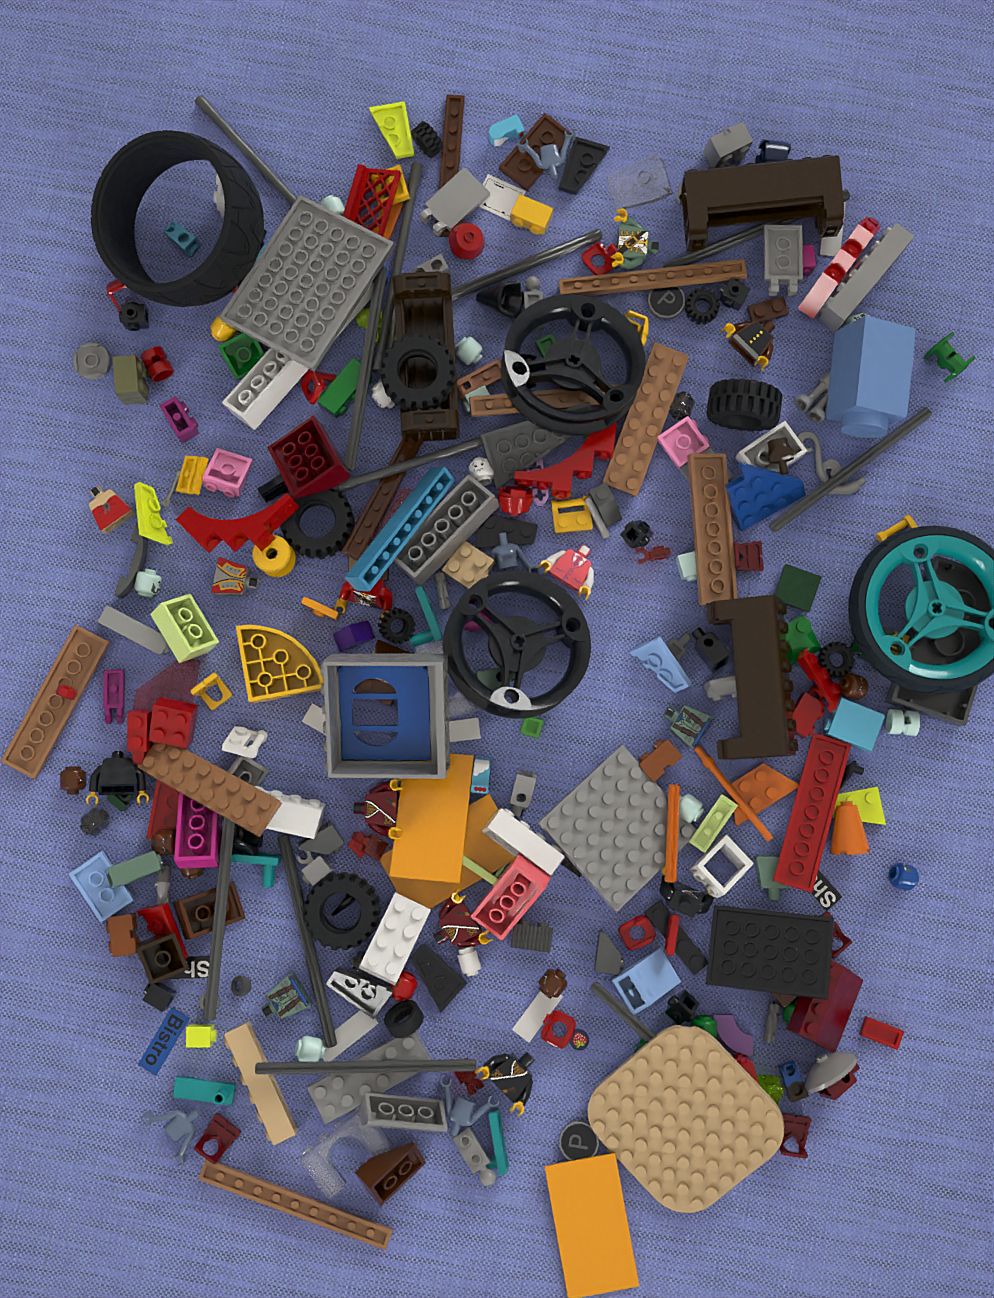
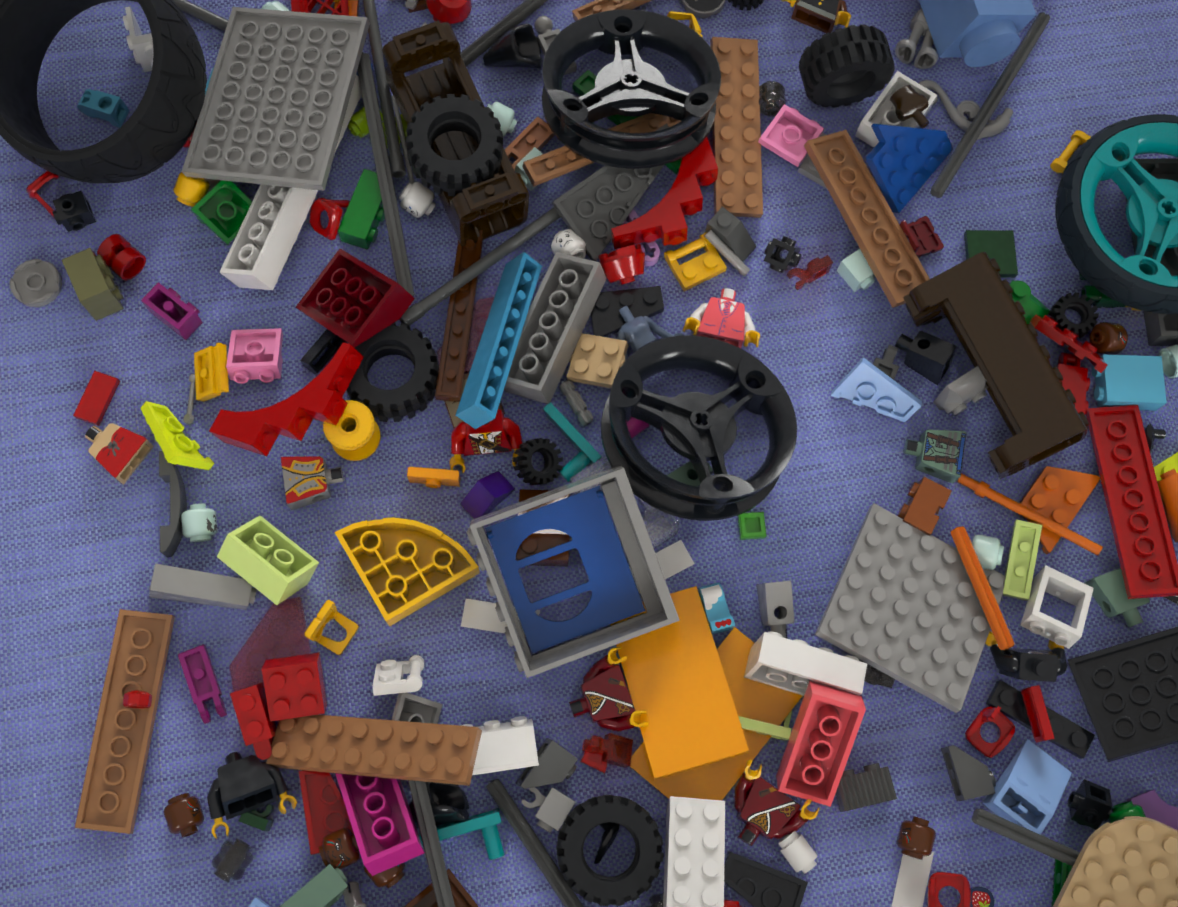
camera: 25 degrees left, 10 degrees down
(107, 464) = (96, 398): none -> red tile

